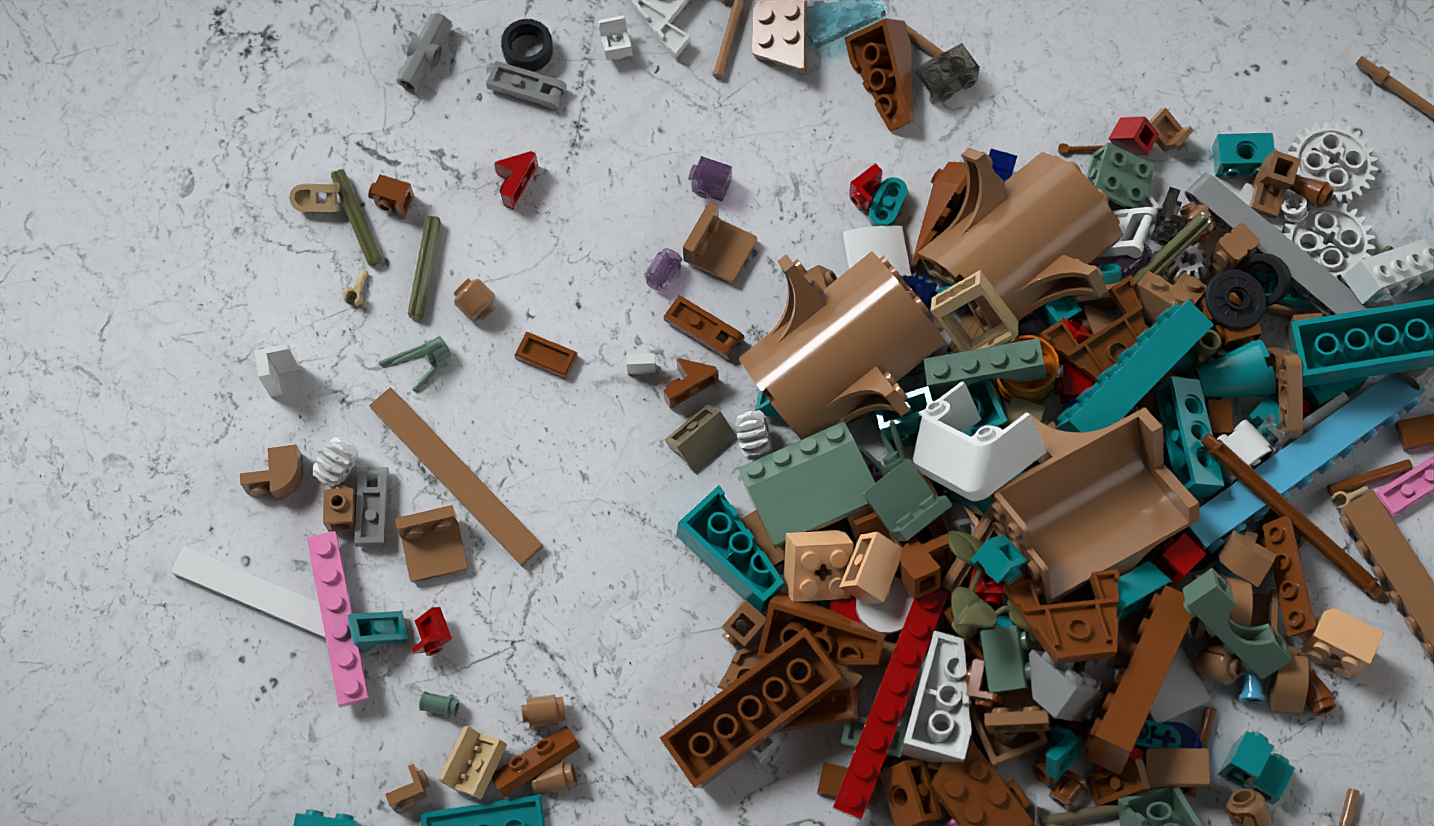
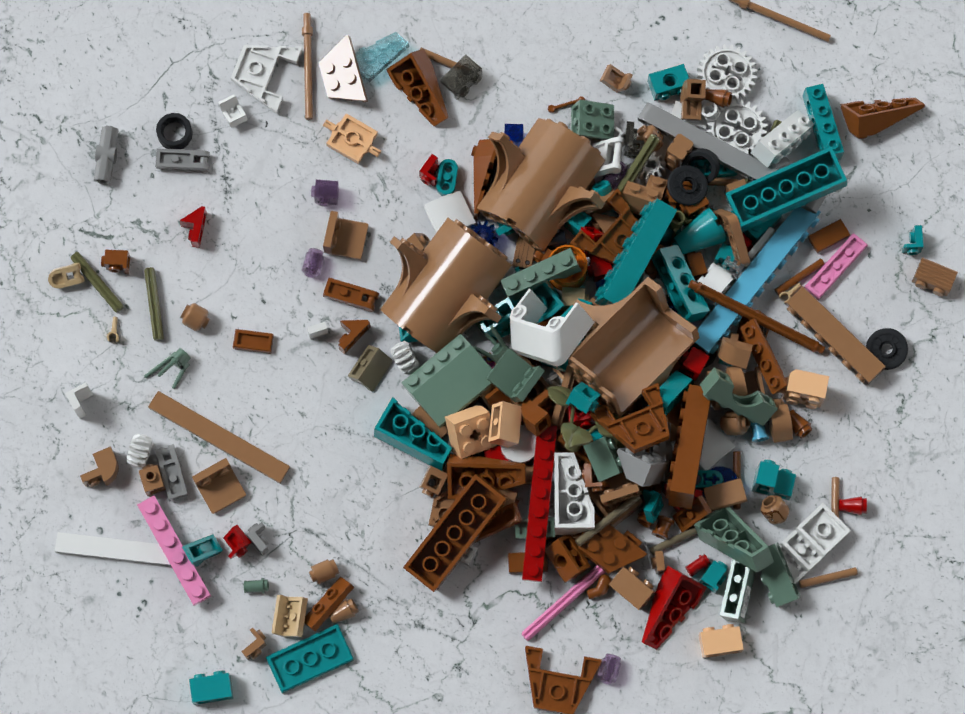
camera: 20 degrees left, 5 degrees up
(464, 641) = (258, 541): none -> light grey bracket
(769, 116) = (352, 138): none -> light nougat plate
(964, 292) = (514, 231): tan window -> none
(986, 754) = (607, 520): none -> dark tan bar
(1134, 135) = (595, 89): red brick -> none

